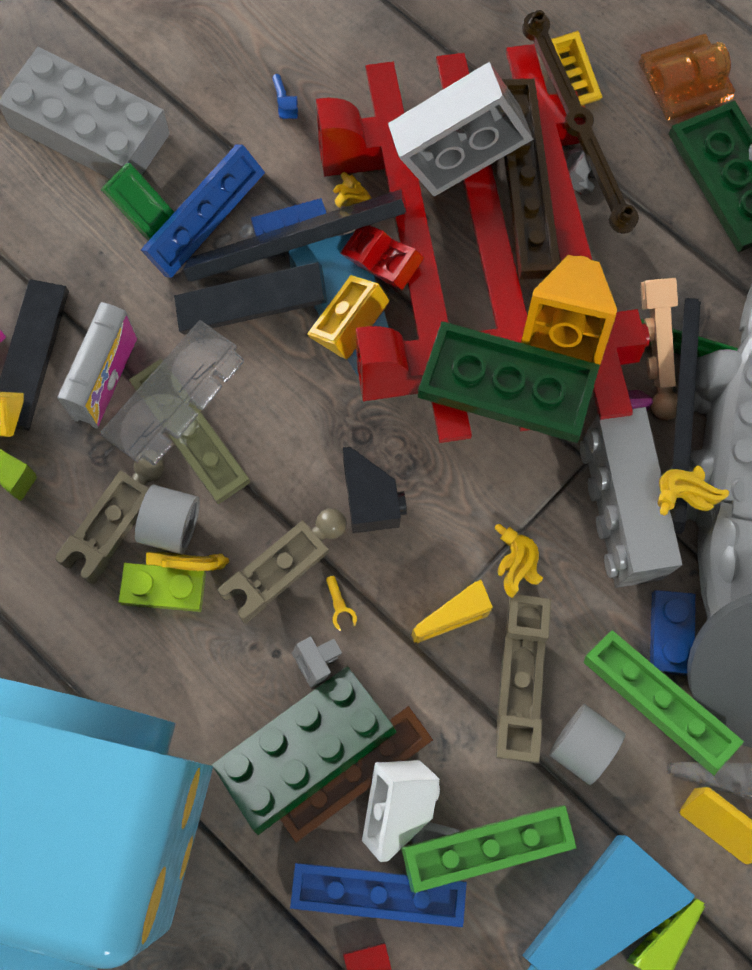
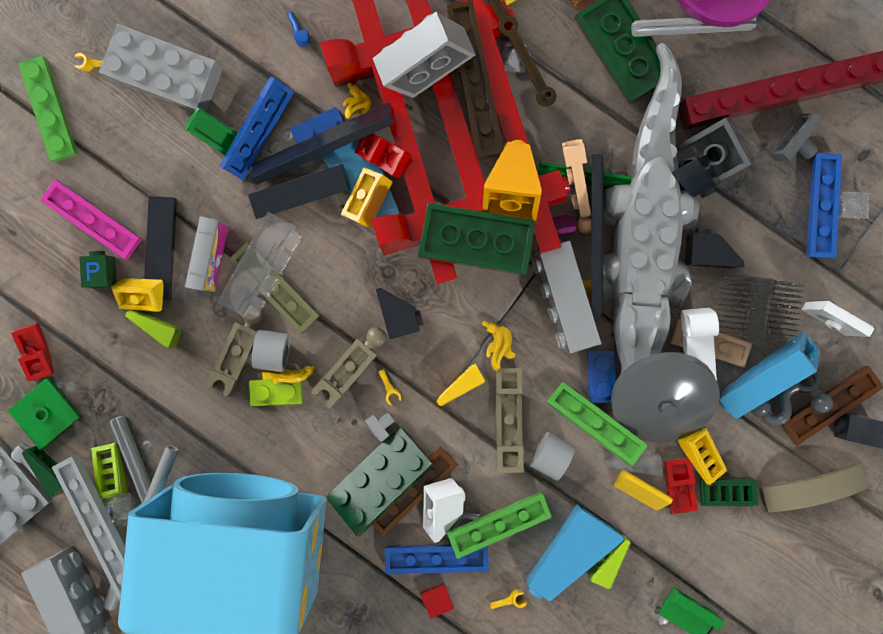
camera: 10 degrees left, 15 degrees up
(690, 487) = (601, 291): yellow piece -> none

